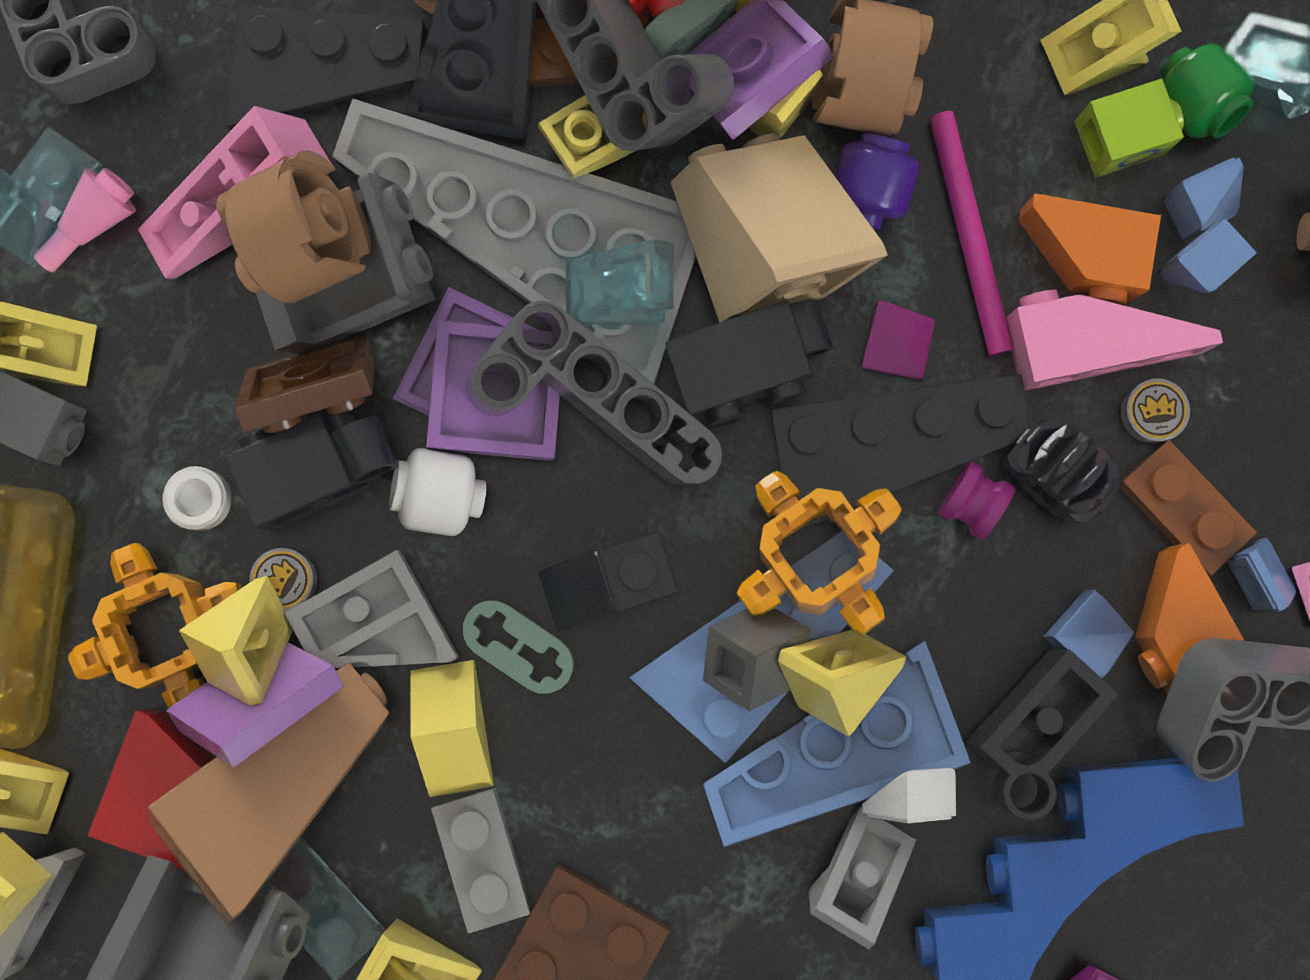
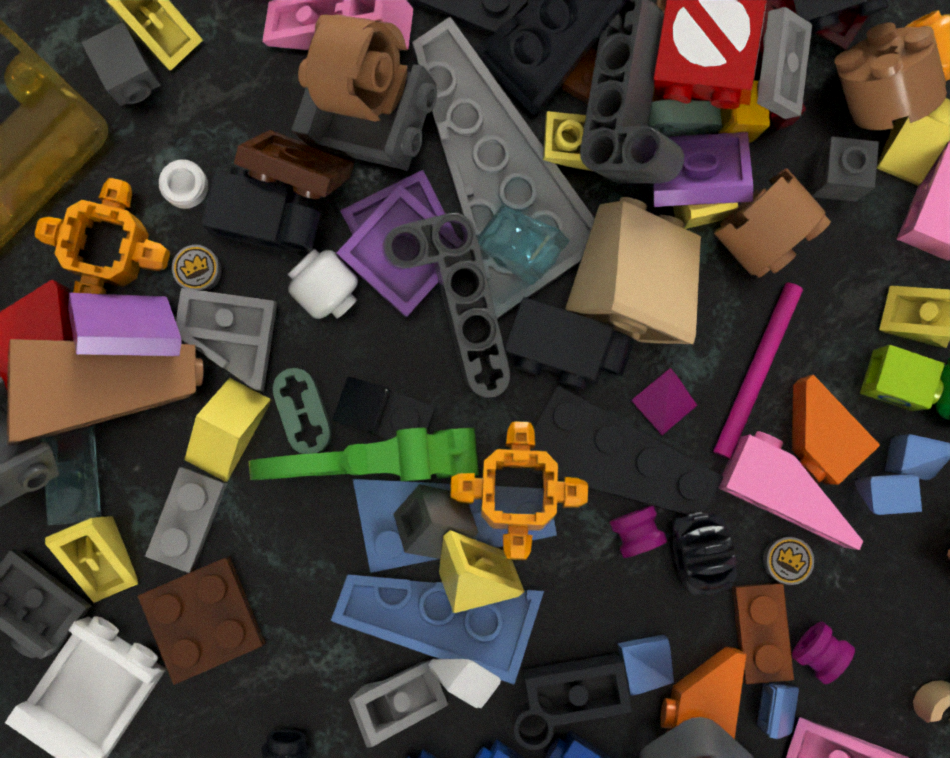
camera: 35 degrees right, 0 degrees up
(241, 641) = (143, 285): light yellow slope -> none
(679, 600) = (409, 454): none -> bright green piece
(878, 176) = (725, 294): dark purple head -> none
(1266, 480) = (823, 653): none -> magenta wheel

